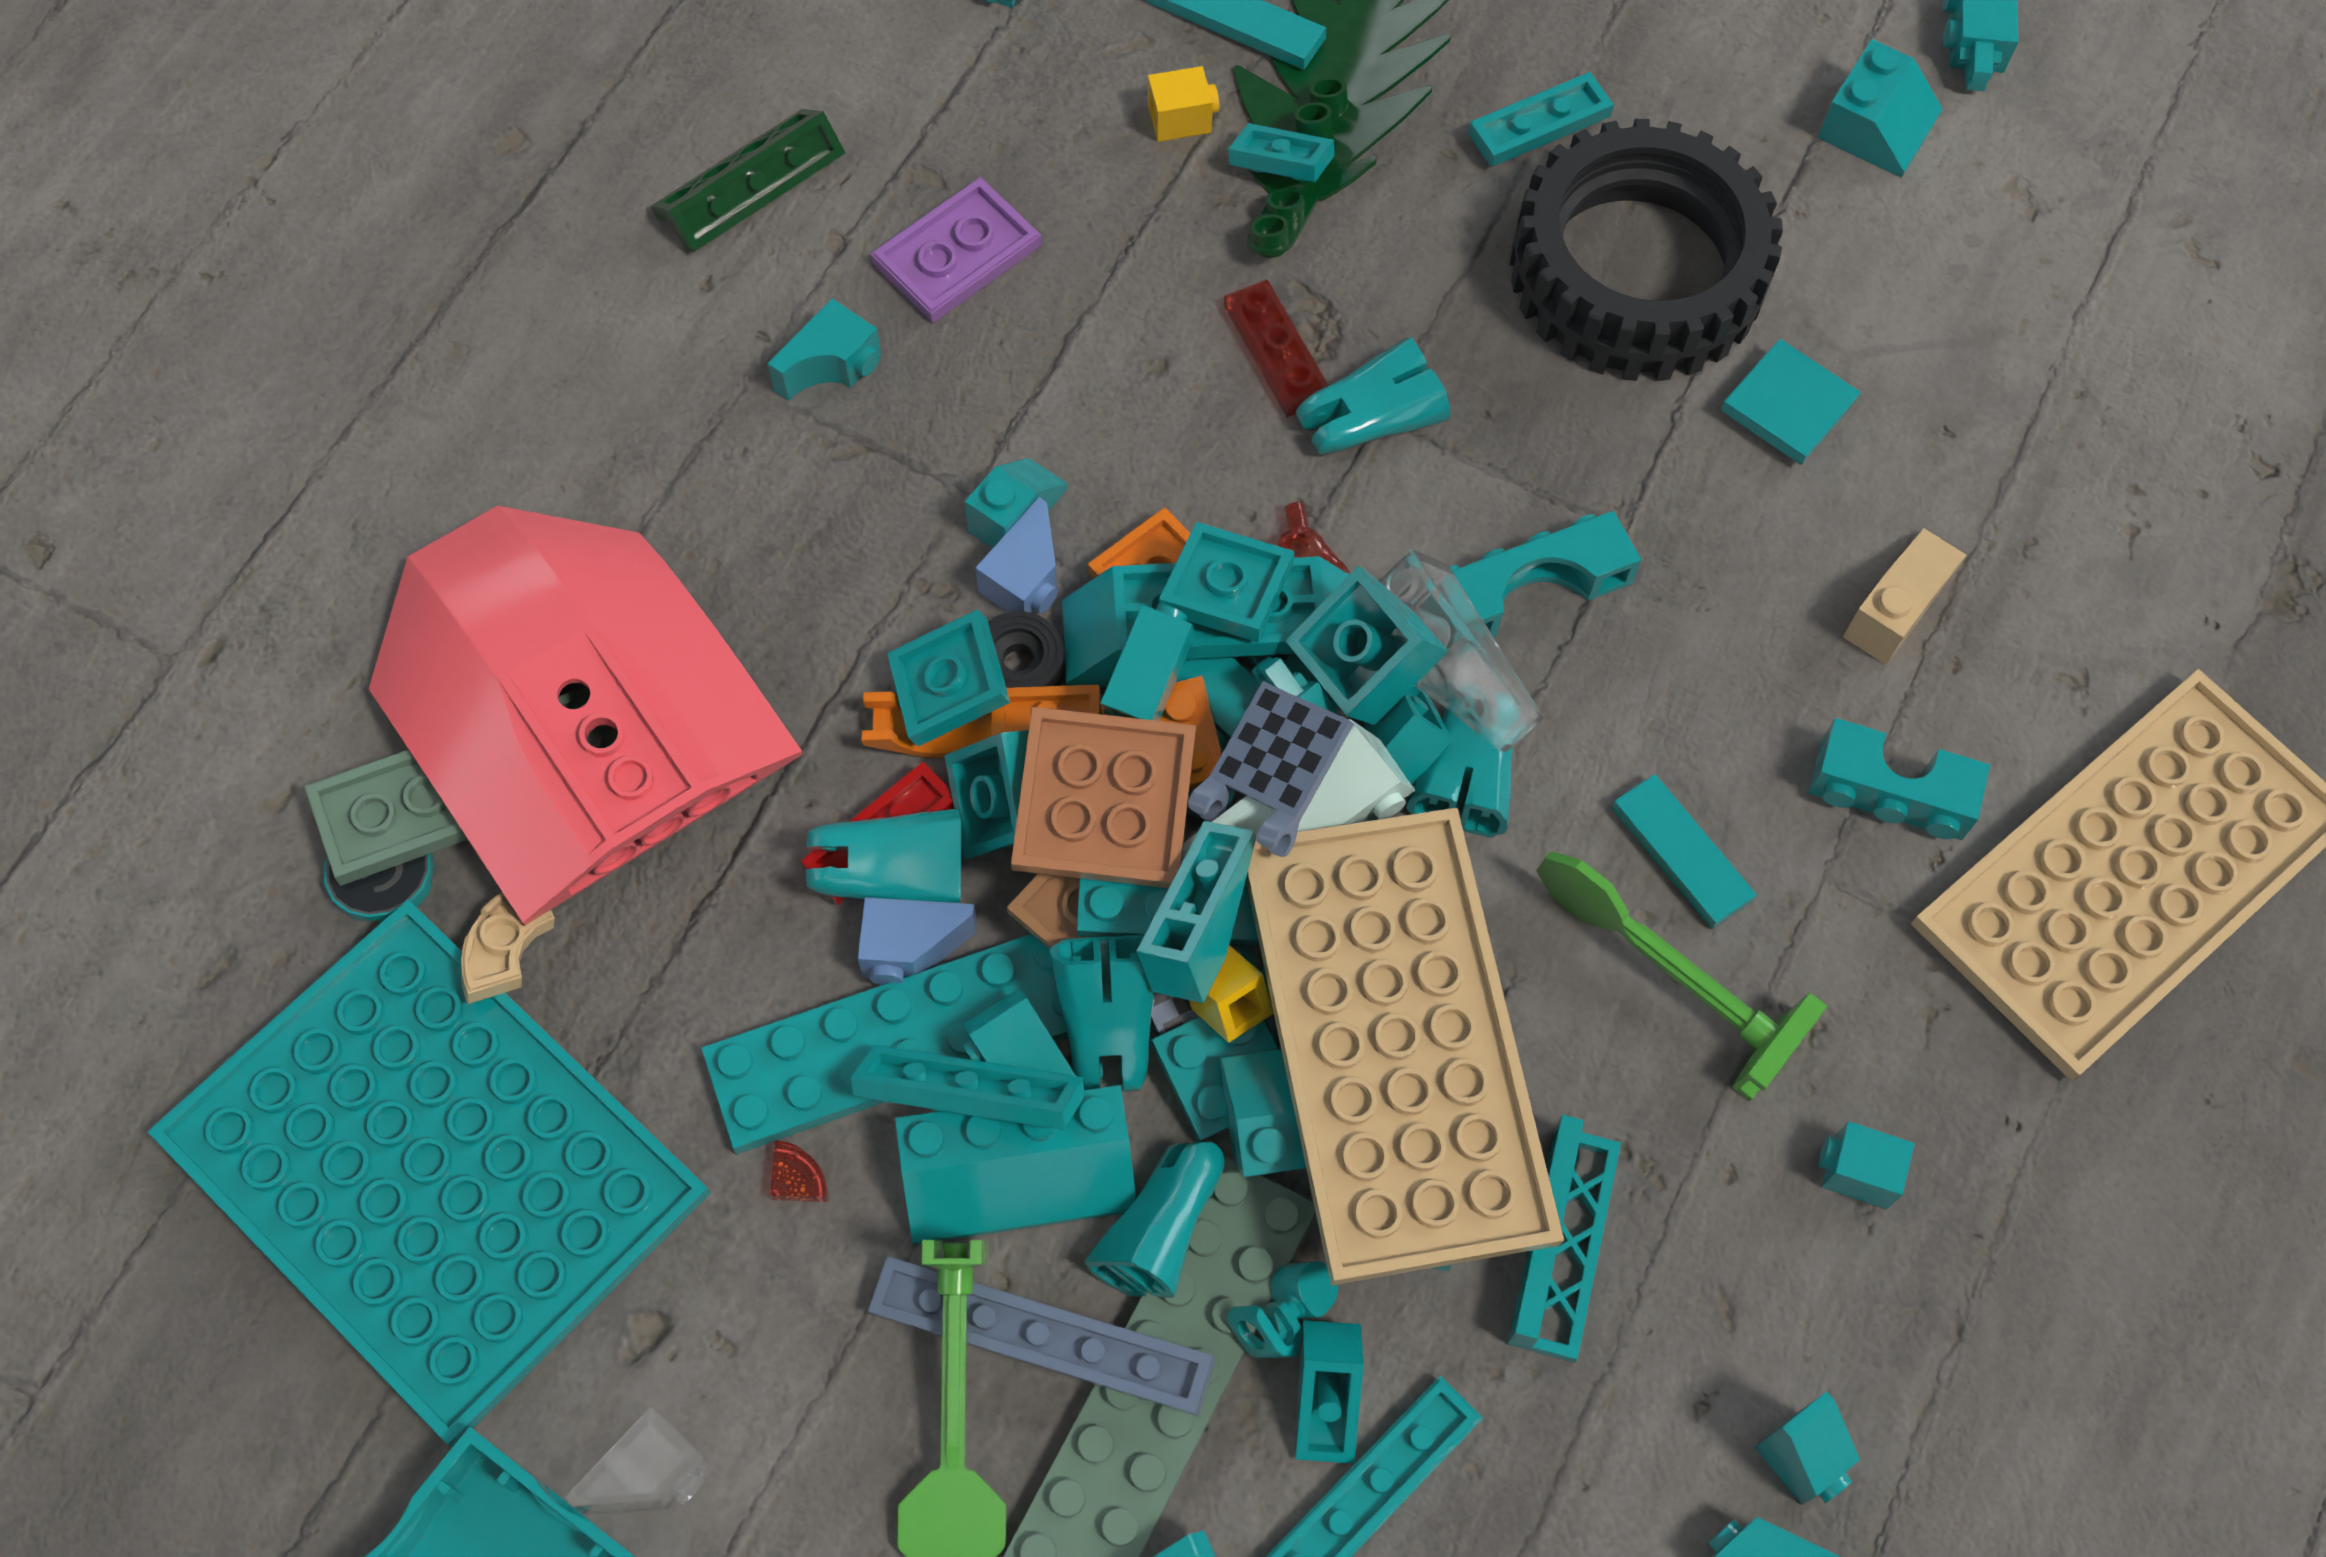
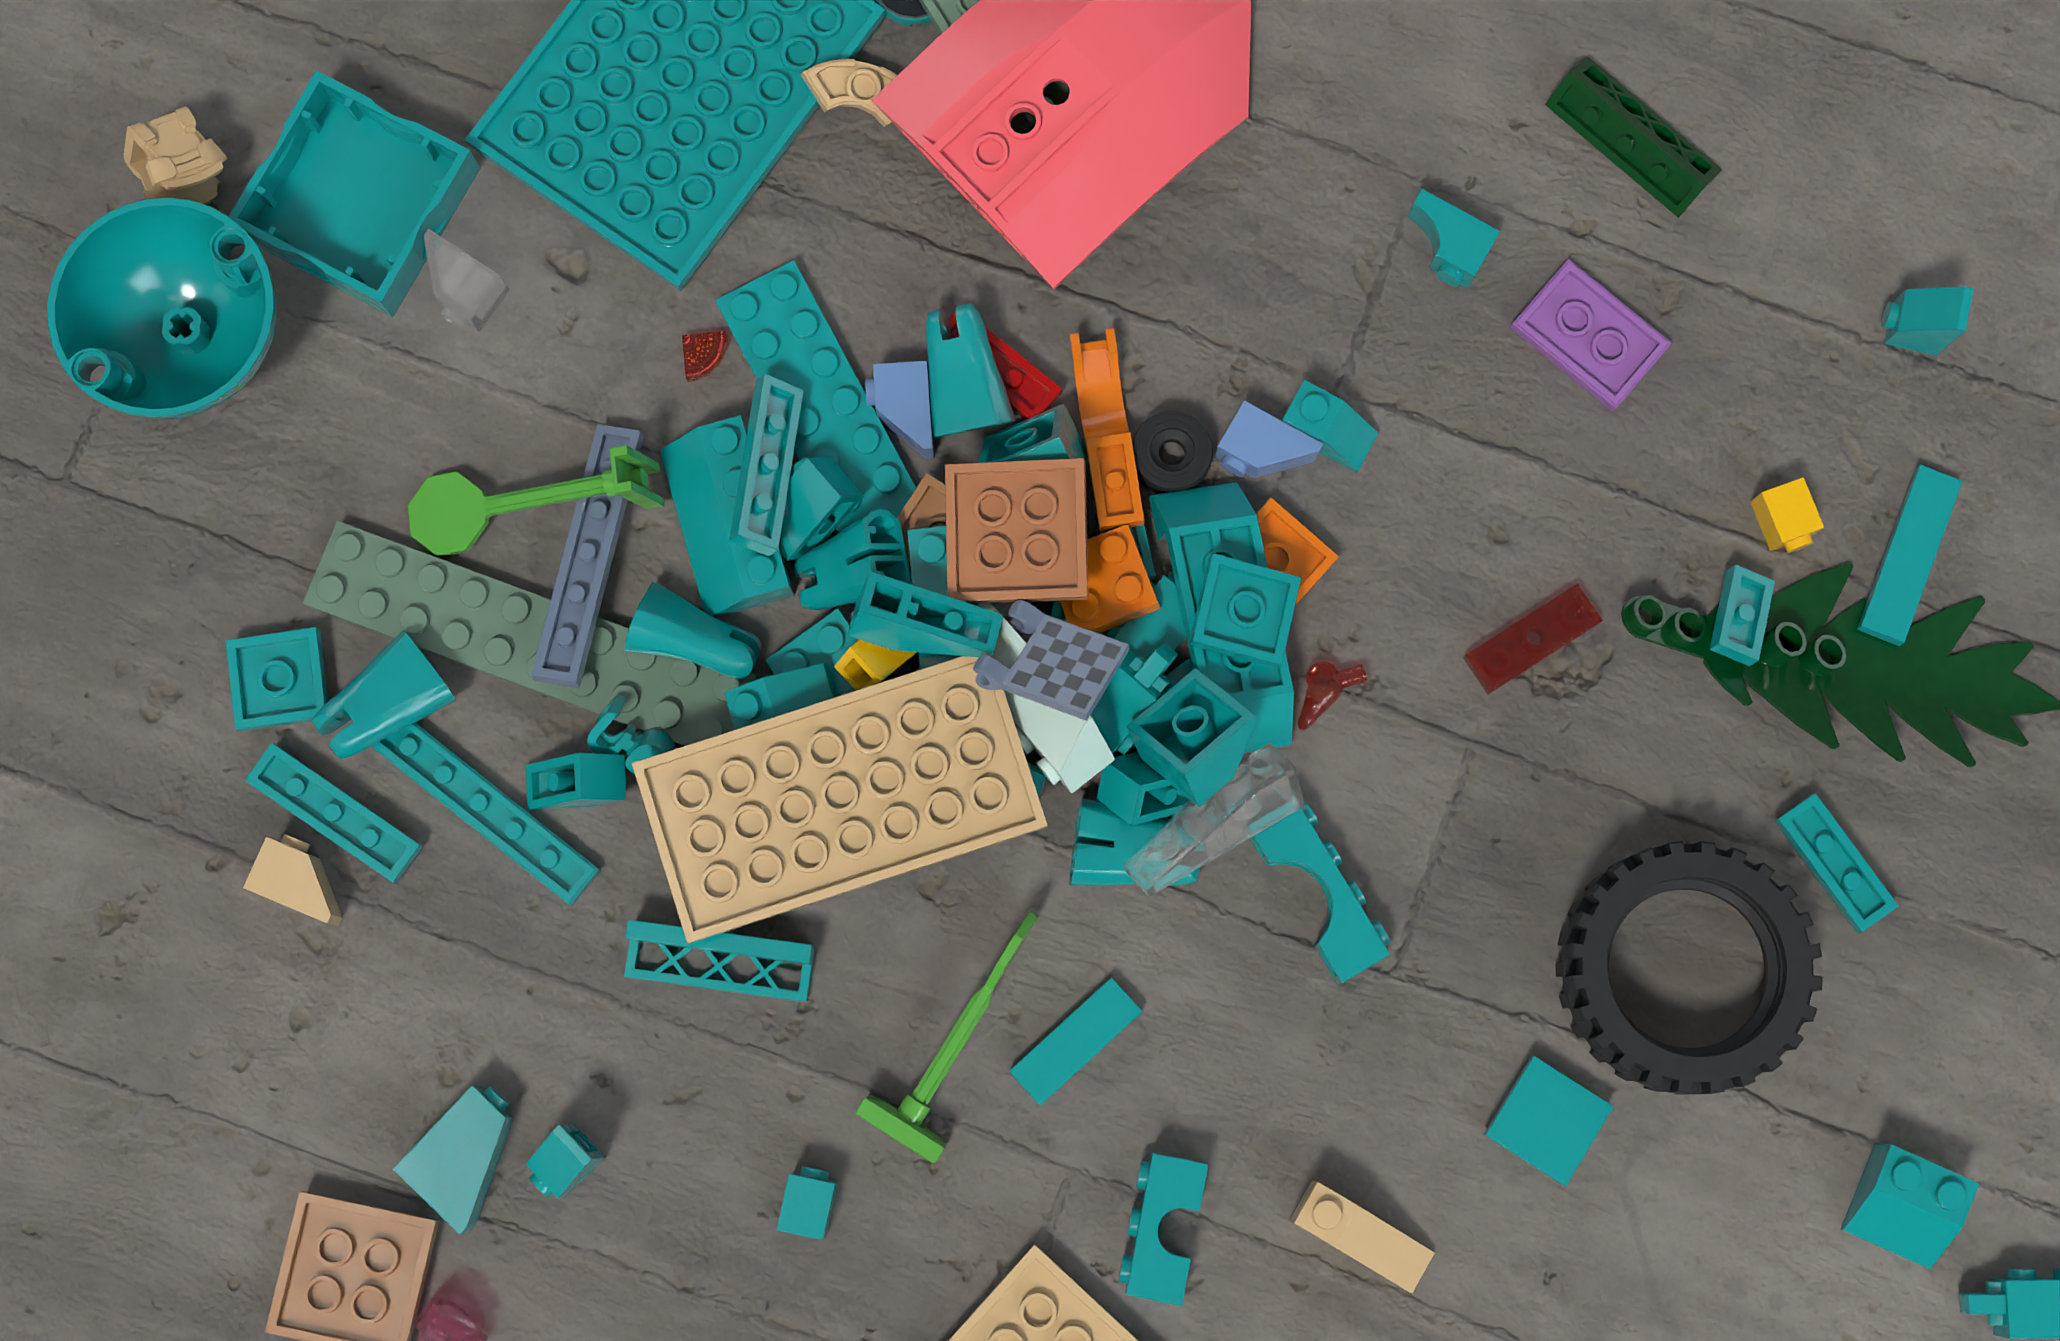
camera: 85 degrees right, 15 degrees up
(948, 678) = (1133, 394): teal plate -> none
(1149, 664) = (1143, 552): teal brick -> none
(1376, 401) = (1482, 733): teal piece -> none

